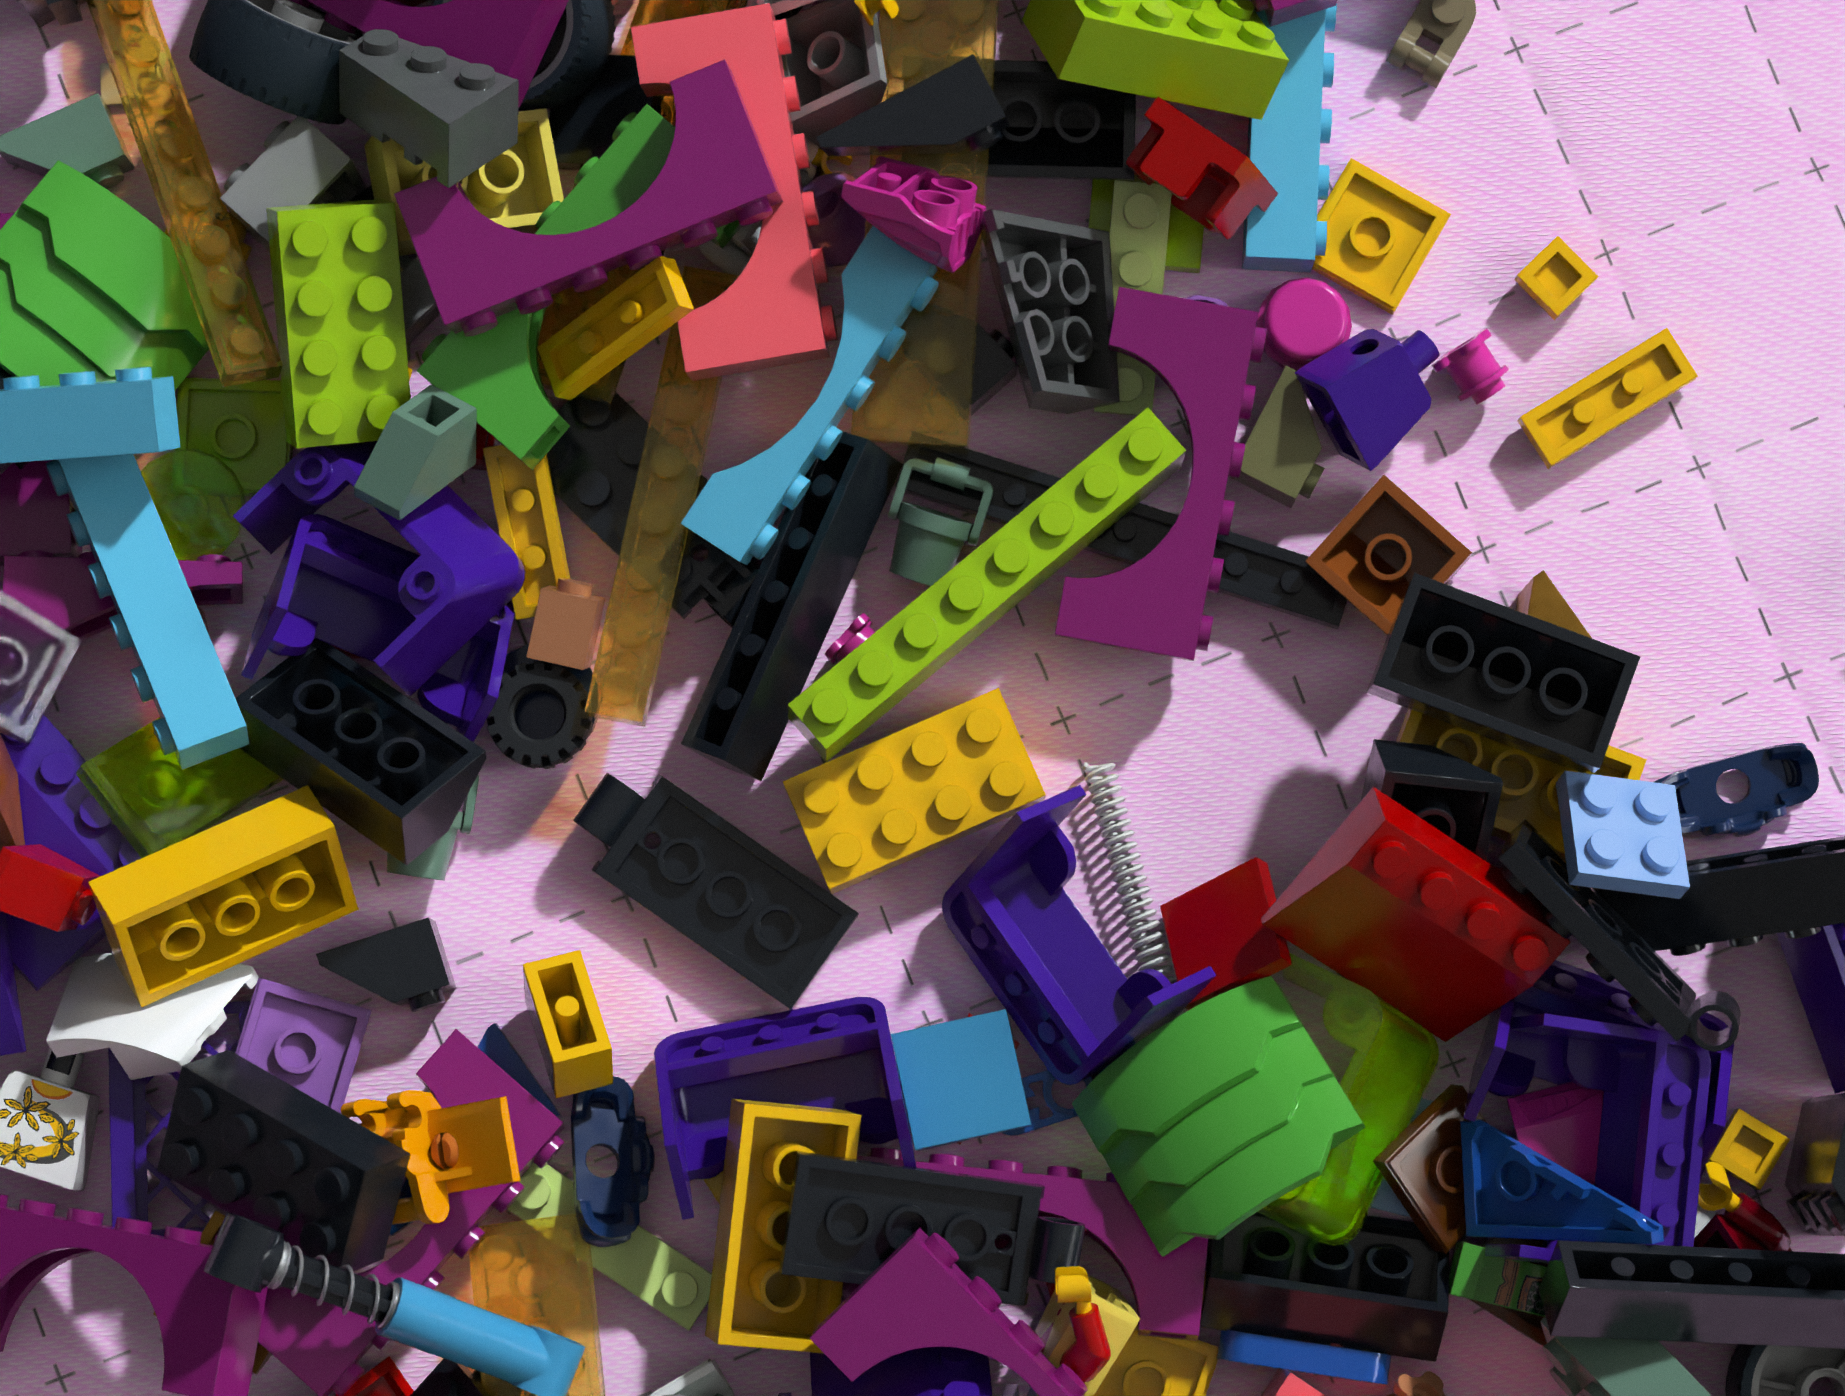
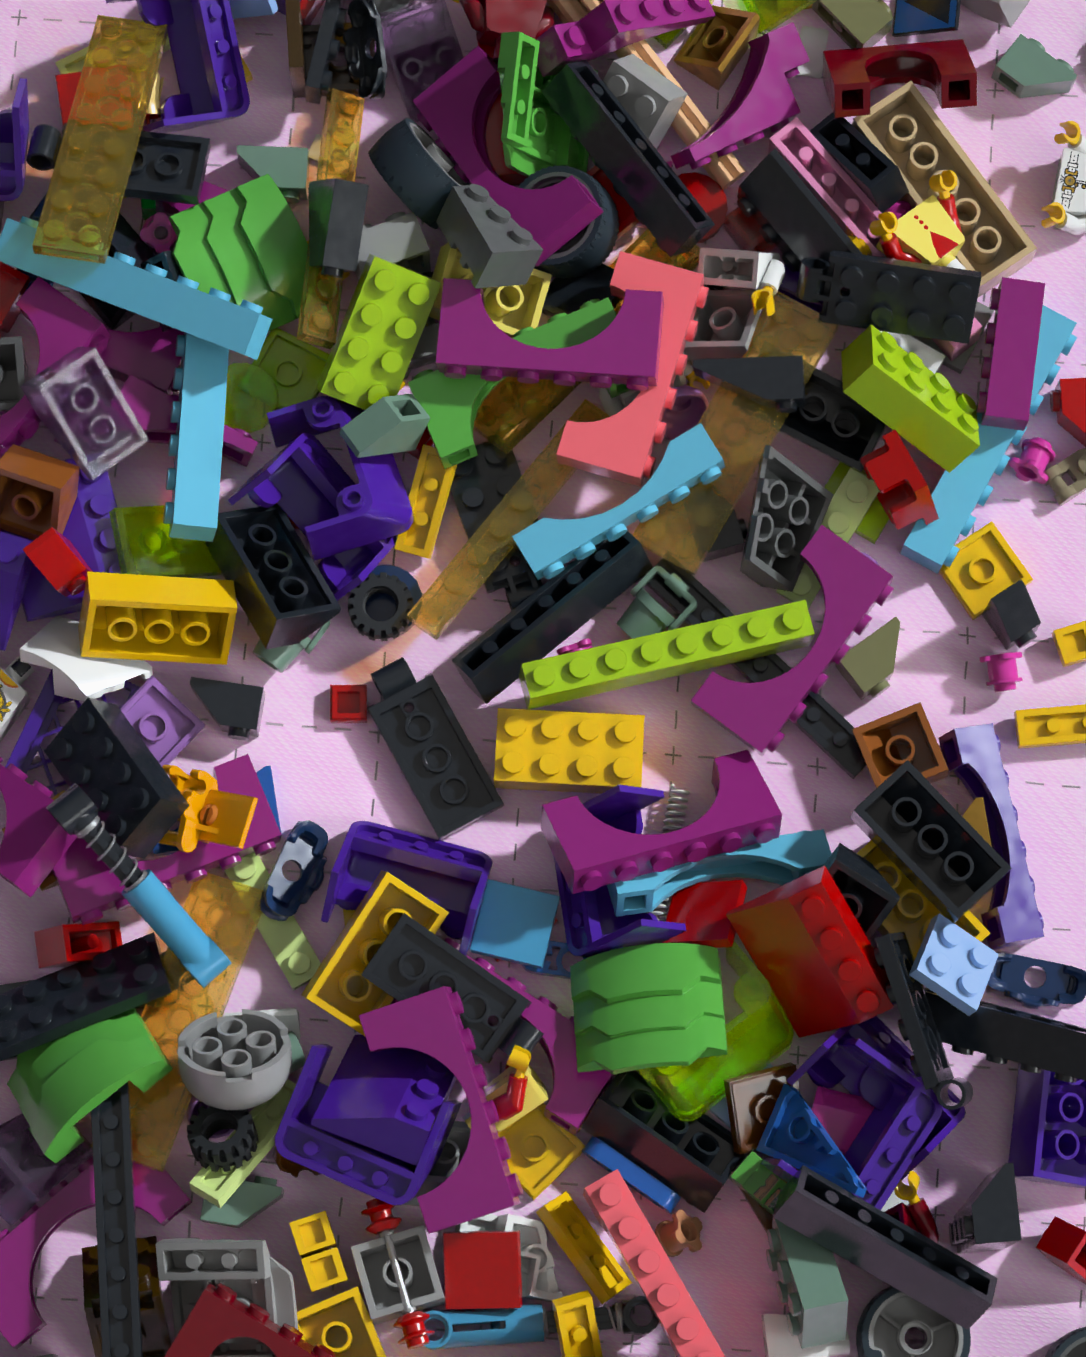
camera: 20 degrees right, 5 degrees down
(196, 190) = (335, 224): none -> black slope
(562, 876) = (348, 703): none -> red tile
(566, 624) = (420, 563): nougat brick -> none
(568, 1024) = (311, 783): yellow brick -> none
(615, 328) = (529, 411): yellow plate -> none
(919, 210) = (730, 427): dark pink slope -> none
(1038, 927) = (600, 855): none -> magenta arch
(1118, 928) = (774, 861): none -> medium azure arch
(1303, 321) = (919, 600): dark pink piece -> none
(1367, 41) = (1033, 460): none -> dark pink brick
(1369, 392) = (936, 654): dark purple torso -> none
(1452, 283) = (1013, 616): none -> black slope
(1506, 521) = (976, 760): none -> arch
(1748, 1149) = (942, 1183): yellow plate -> none

